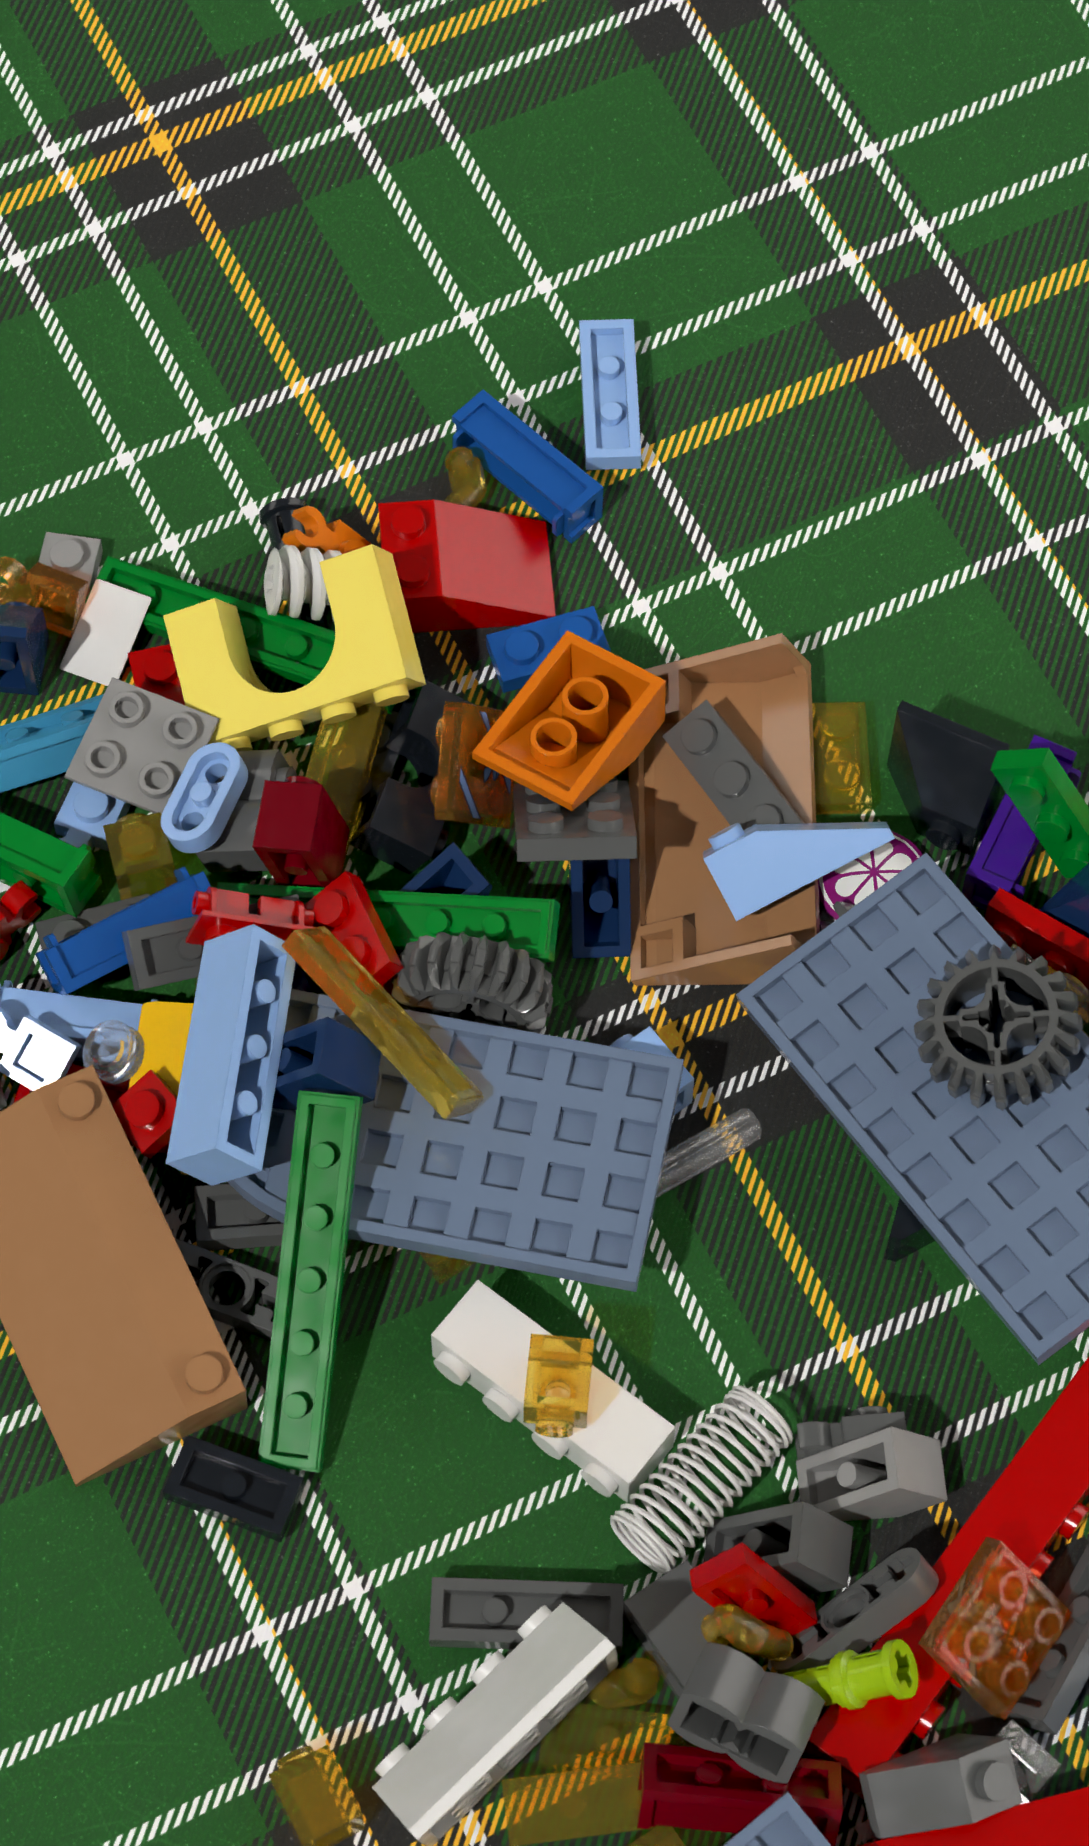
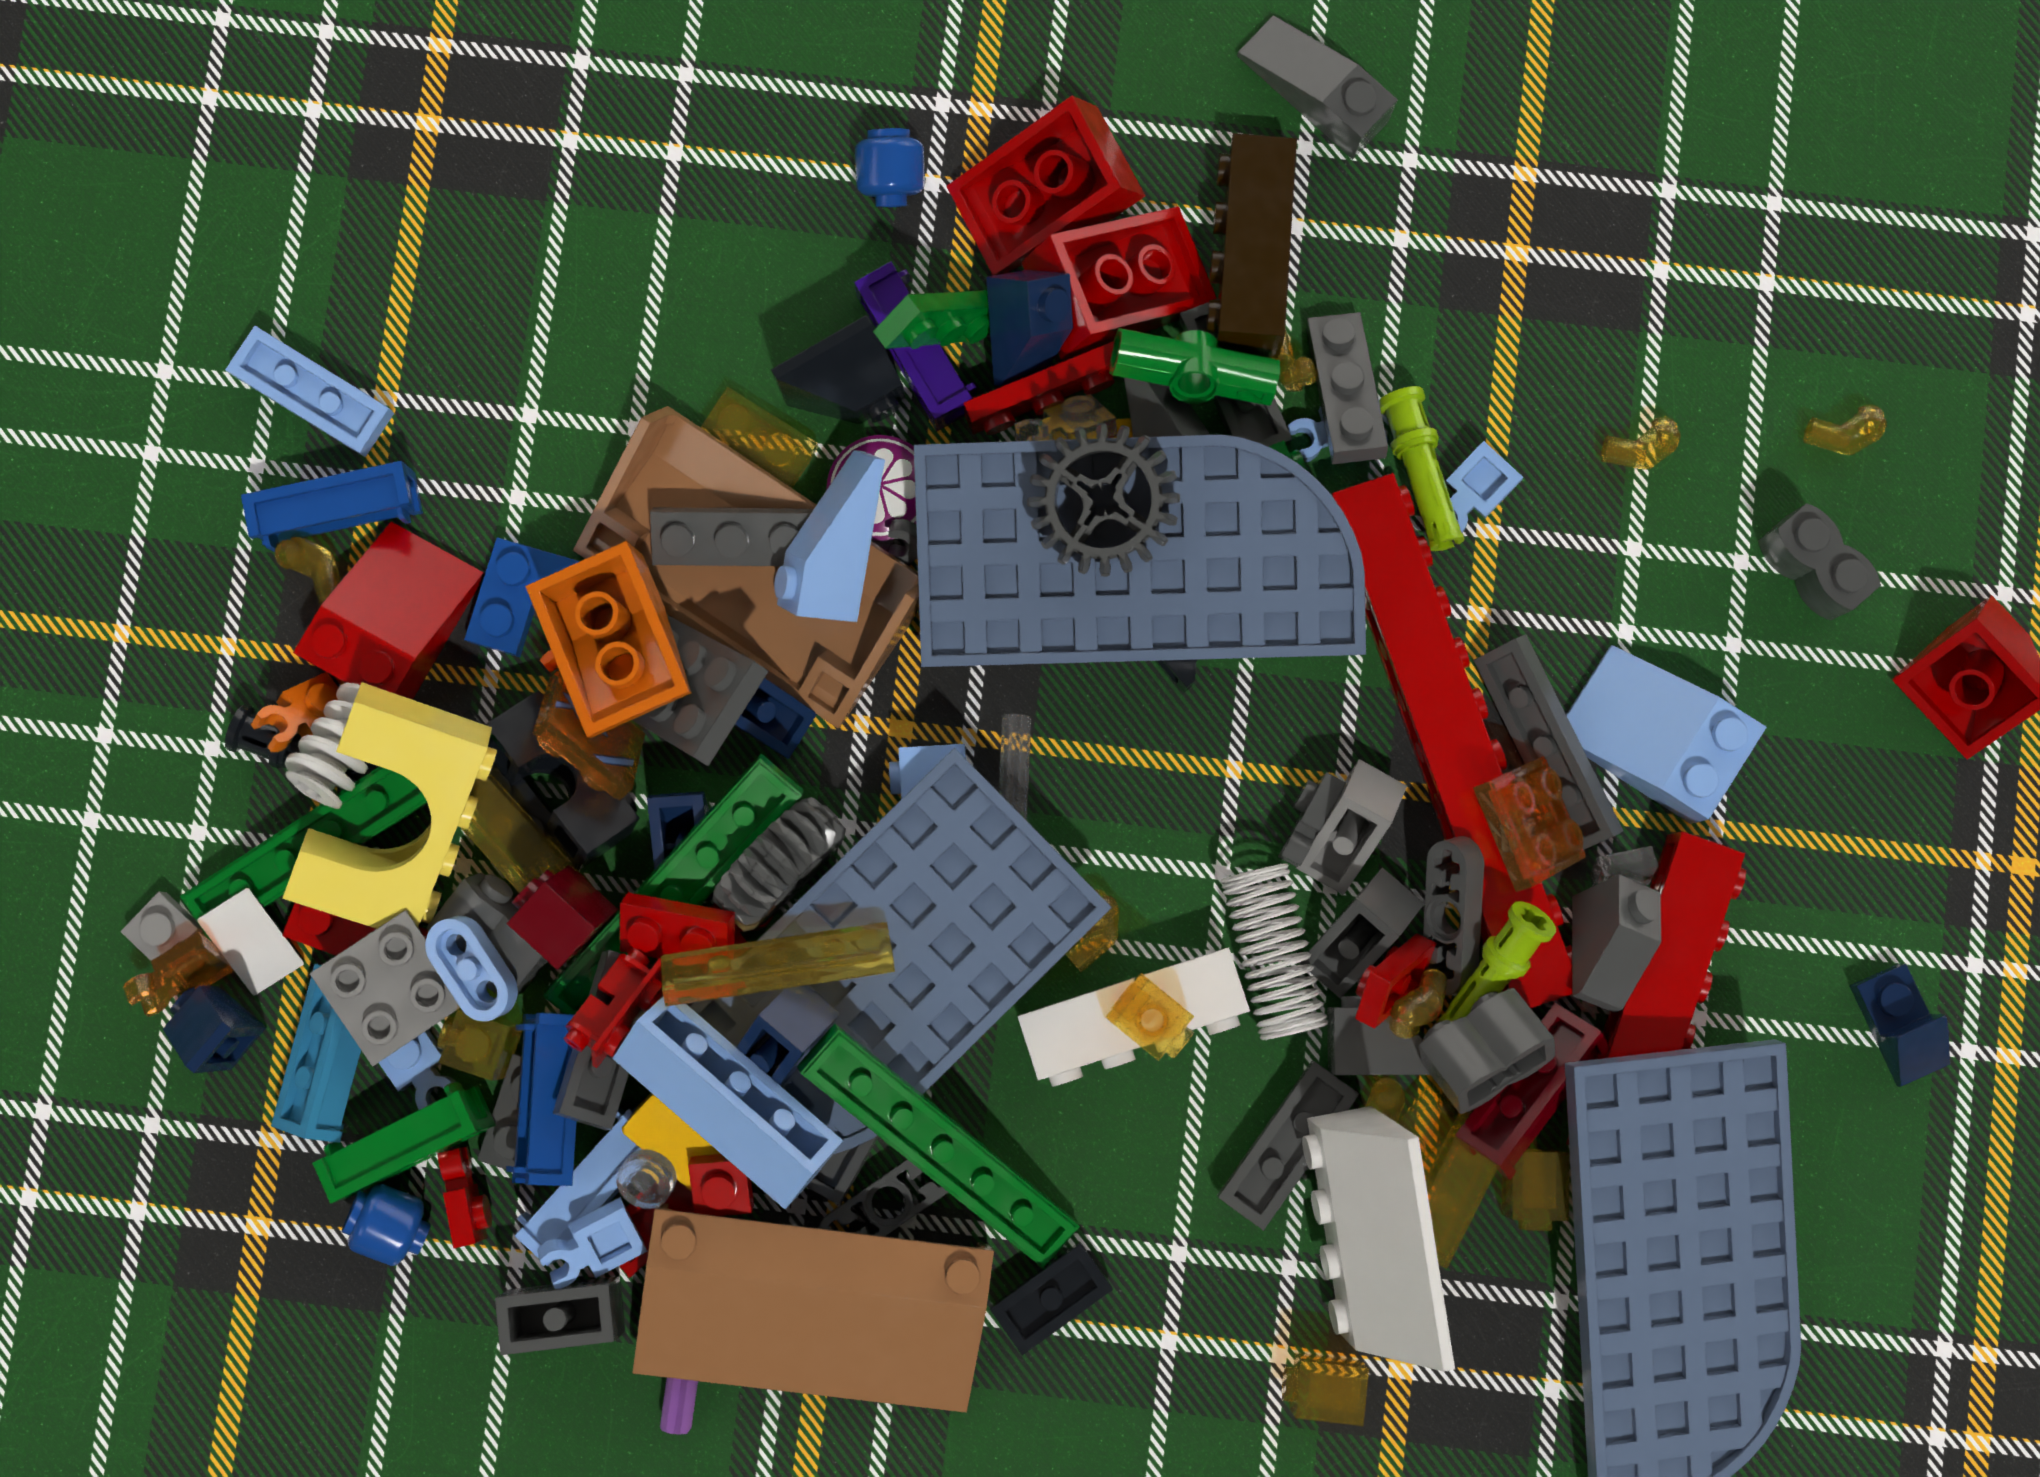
camera: 55 degrees left, 20 degrees up
(608, 1319) = (1098, 938): none -> clear yellow arm

